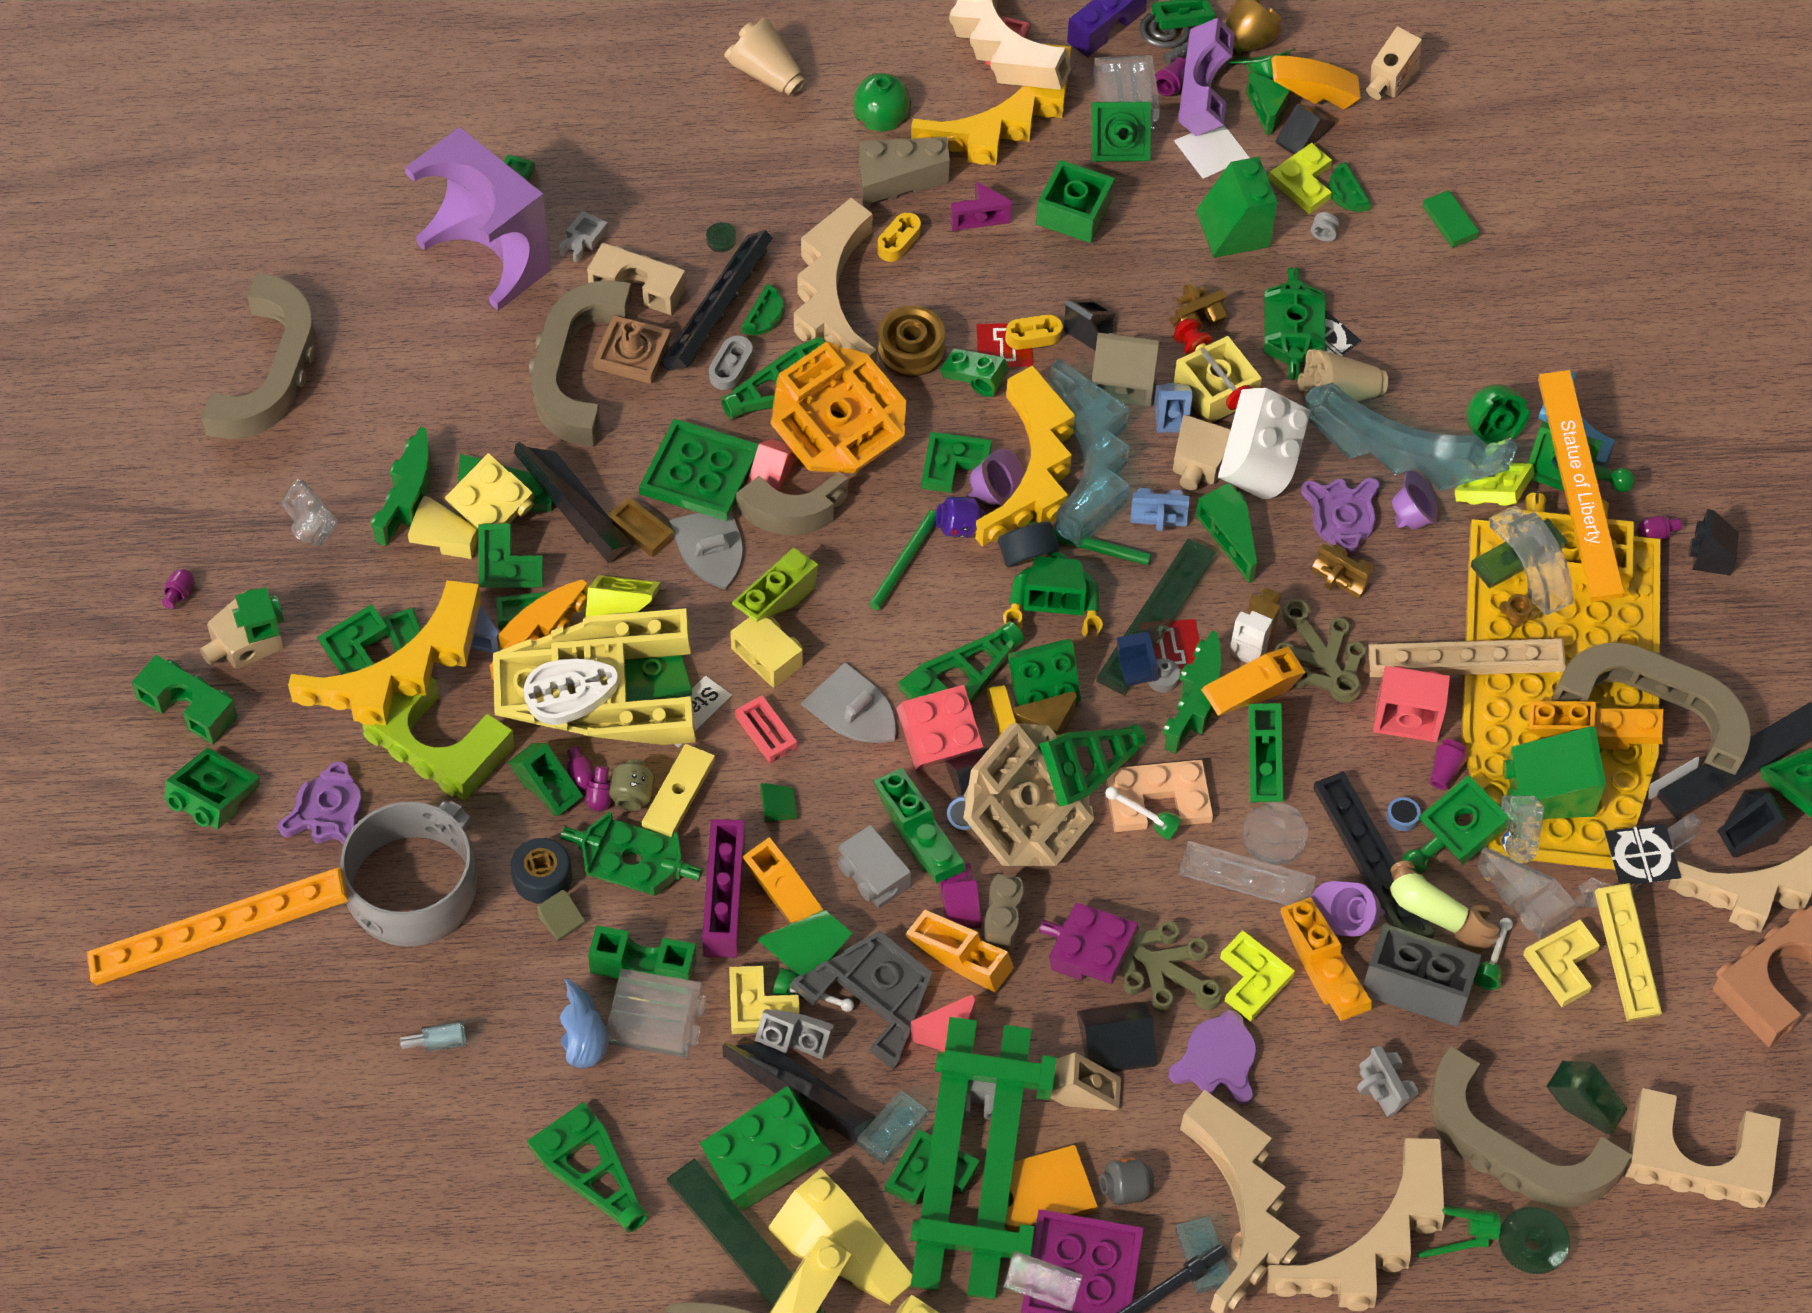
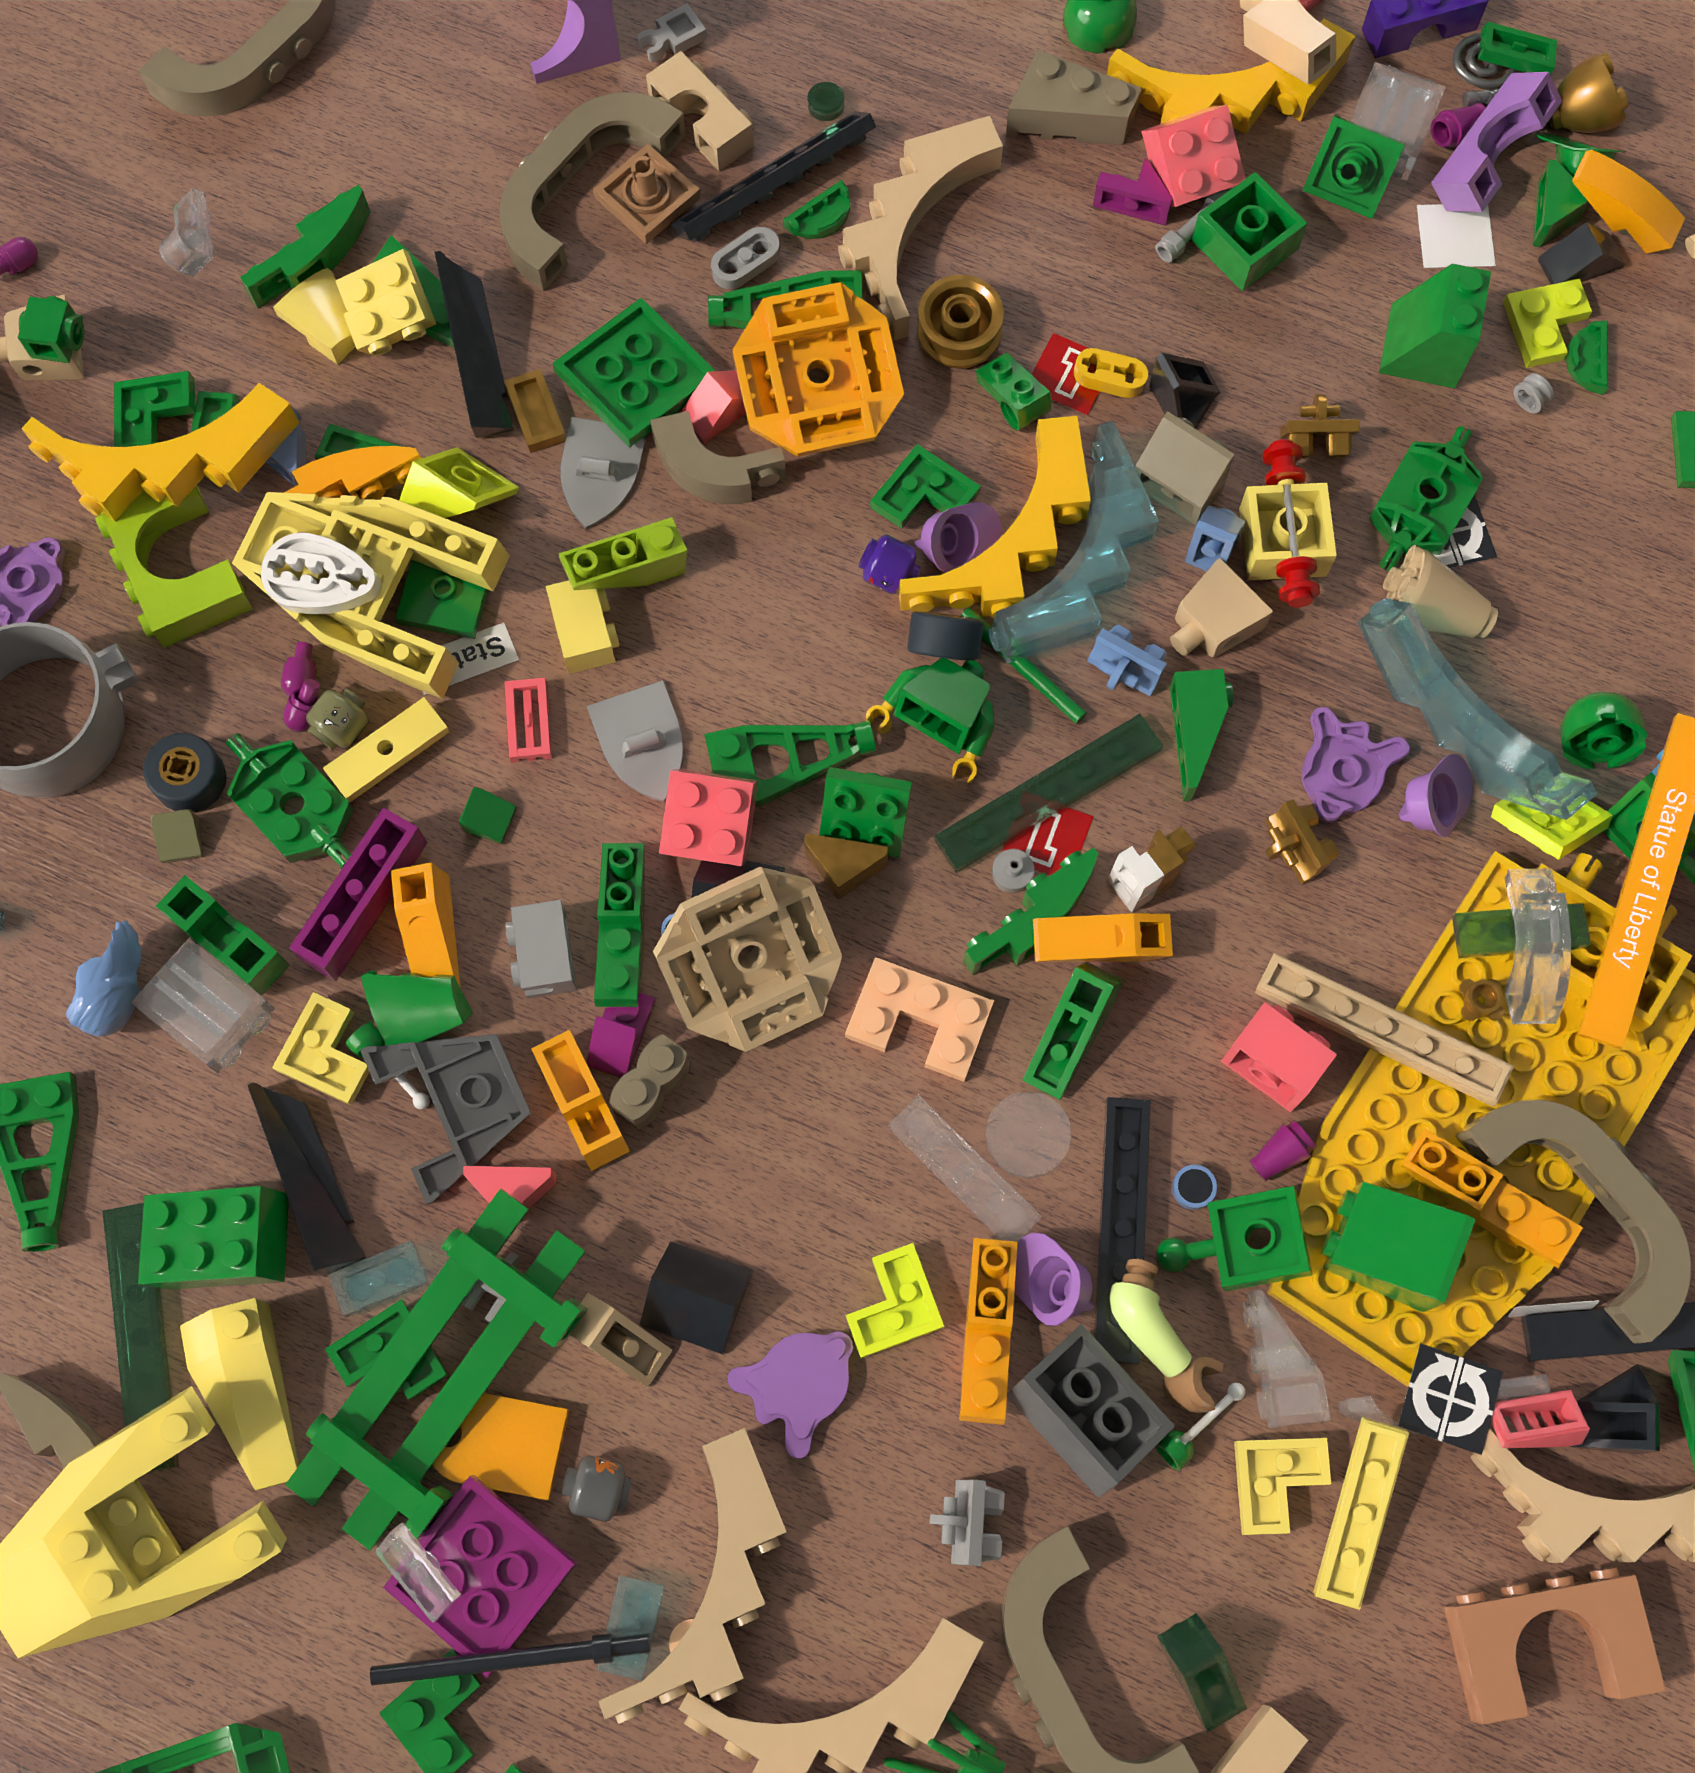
camera: 30 degrees right, 15 degrees up
(497, 565) = (350, 387): green plate -> none
(545, 777) = (251, 665): green arch -> none
(794, 1030) = (326, 1101): light grey slope -> none
(893, 234) = (1023, 186): yellow beam -> none
(903, 560) = (798, 587): green bar -> none
(1000, 708) = (797, 825): yellow beam -> none
(1010, 164) = (1195, 154): none -> coral brick
(1025, 230) = (1174, 243): none -> light grey bar
(1065, 767) = (808, 936): green plate -> none
(1090, 943) = (728, 1170): magenta plate -> none
(1137, 658) = (986, 840): dark blue panel -> none
(1160, 963) = (795, 1231): olive plant -> none
(1164, 823) = (902, 1060): hinge -> none
(1264, 442) = (1289, 640): white brick -> none
(1323, 656) = (1214, 939): olive plant -> none
(1523, 827) = (1317, 1295): clear leg -> none
(1711, 842) = (1561, 1404): none -> coral slope

